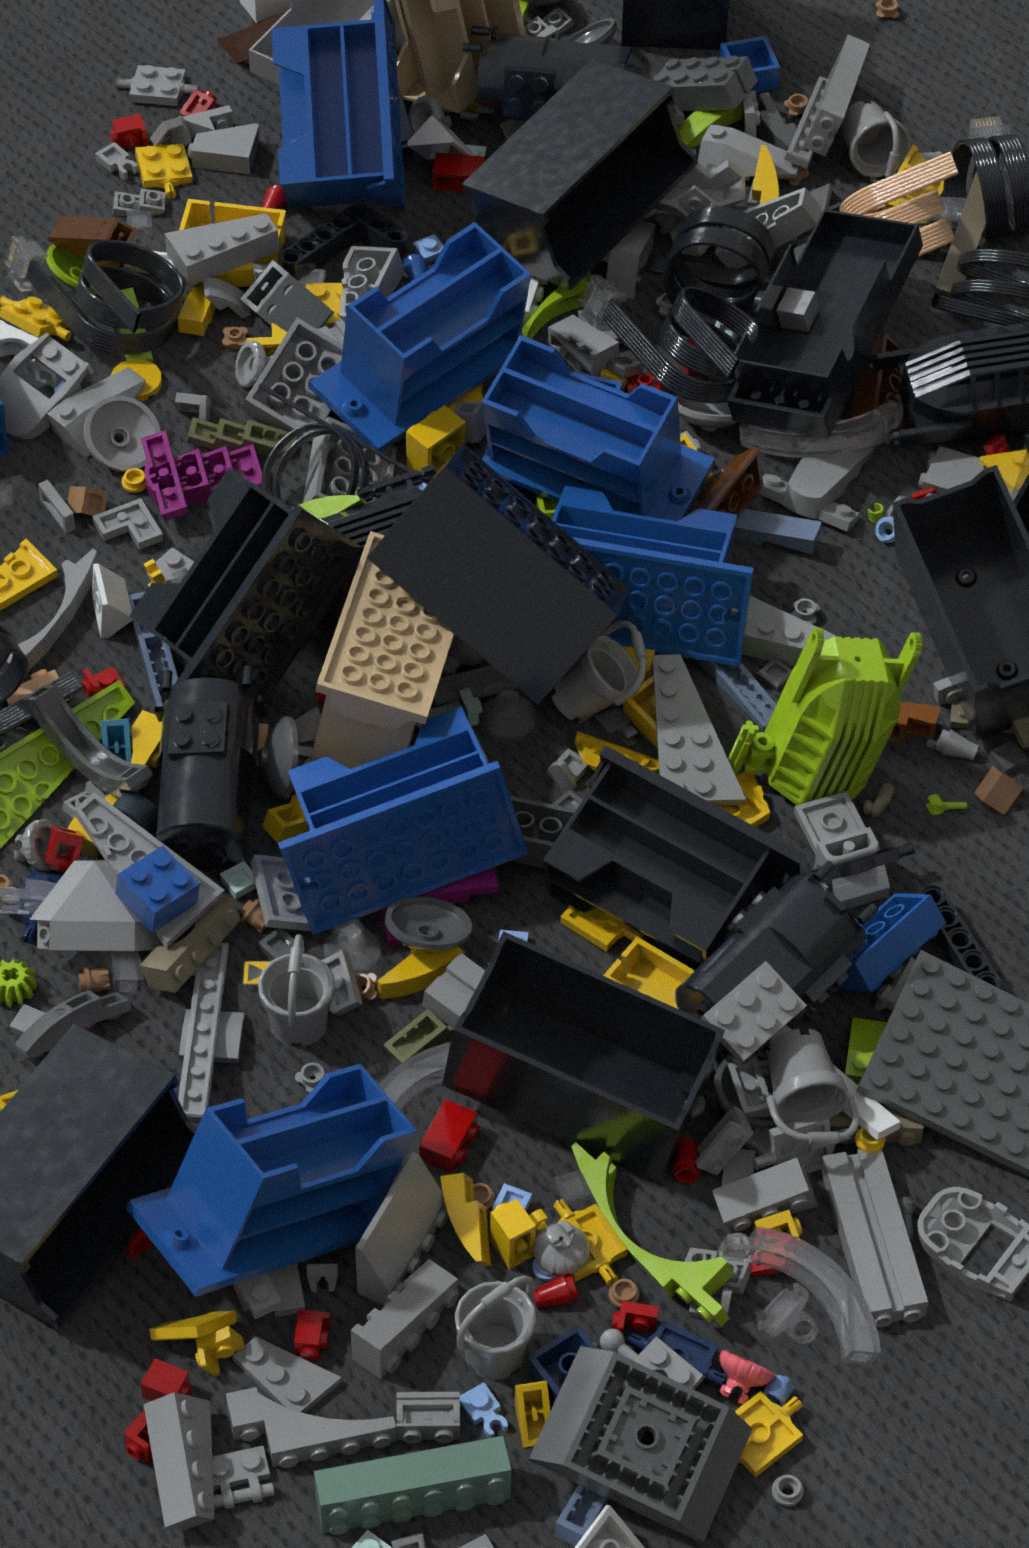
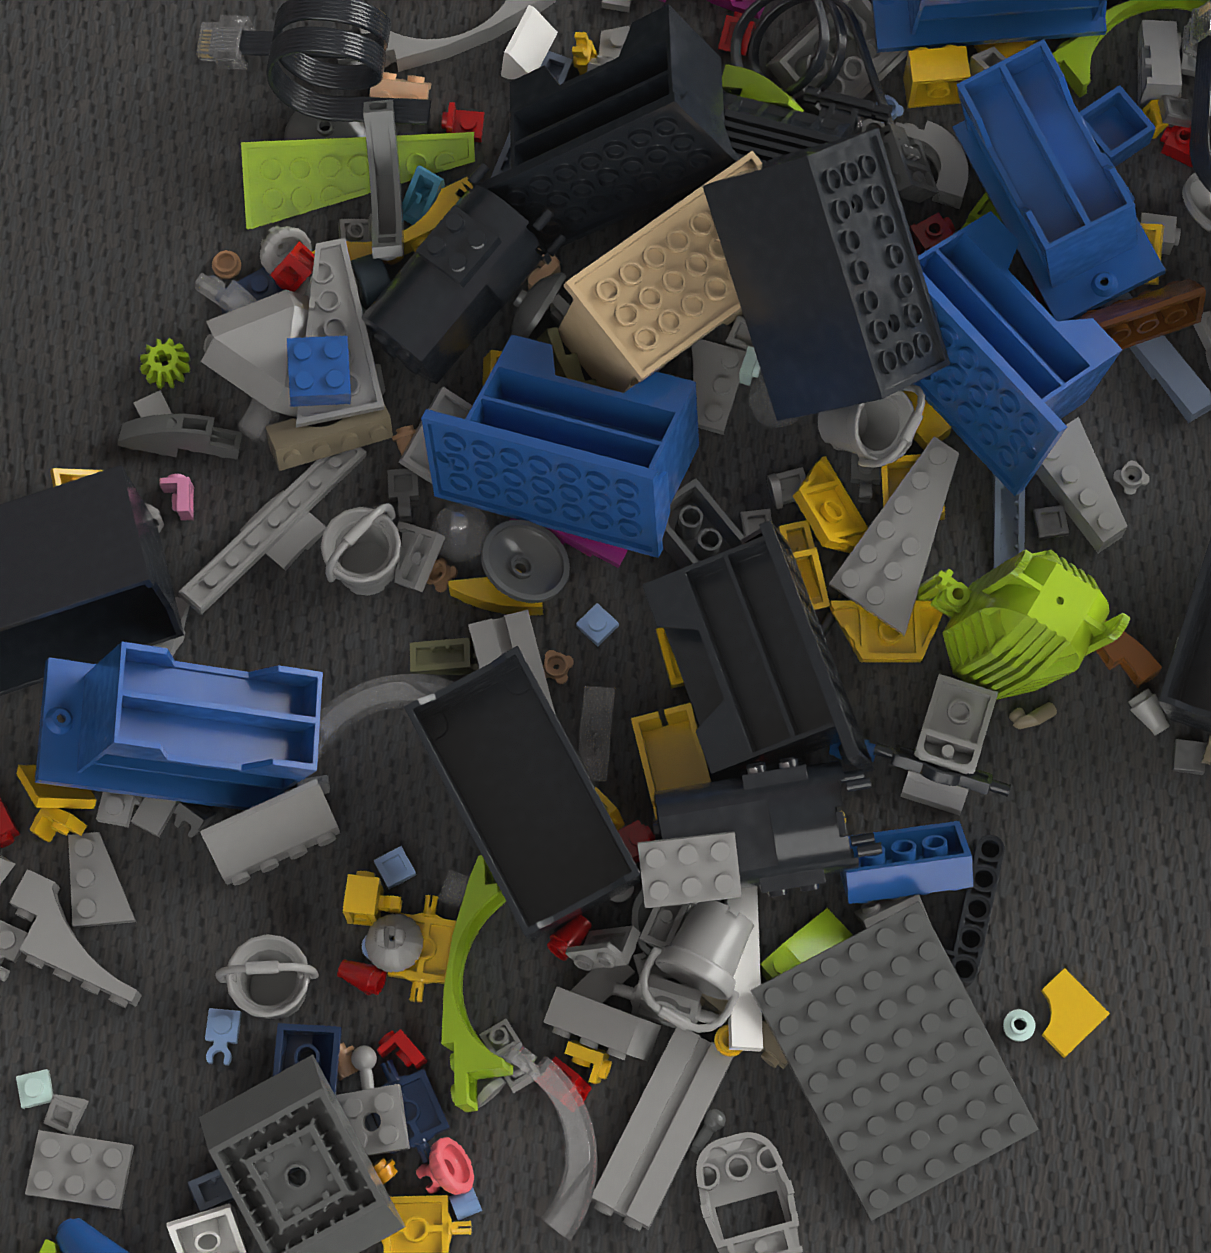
camera: 40 degrees right, 20 degrees up
(94, 979) = (230, 408): medium nougat hose -> none
(238, 880) = (420, 396): light aqua plate -> none
(251, 973) = (366, 495): tile -> none
(307, 1071) = (332, 620): light grey plate -> none
(311, 1334) = (139, 865): red brick -> none
(403, 1319) = (221, 908): light grey wedge -> none
(413, 1485) = (100, 1061): sand green brick -> none
(428, 1416) = (170, 1008): light grey hinge -> none
(449, 1136) = (393, 768): red brick -> none
(467, 1216) = (342, 855): yellow slope -> none
(484, 1194) = (374, 841): medium nougat plate -> none
(532, 1410) = (251, 1069): yellow slope -> none
(623, 1290) = (417, 1018): medium nougat plate -> none
(786, 1312) = (525, 1143): clear tile -> none
(937, 806) = (1080, 756): lime hand -> none
(998, 790) = (1148, 784): medium nougat panel -> none

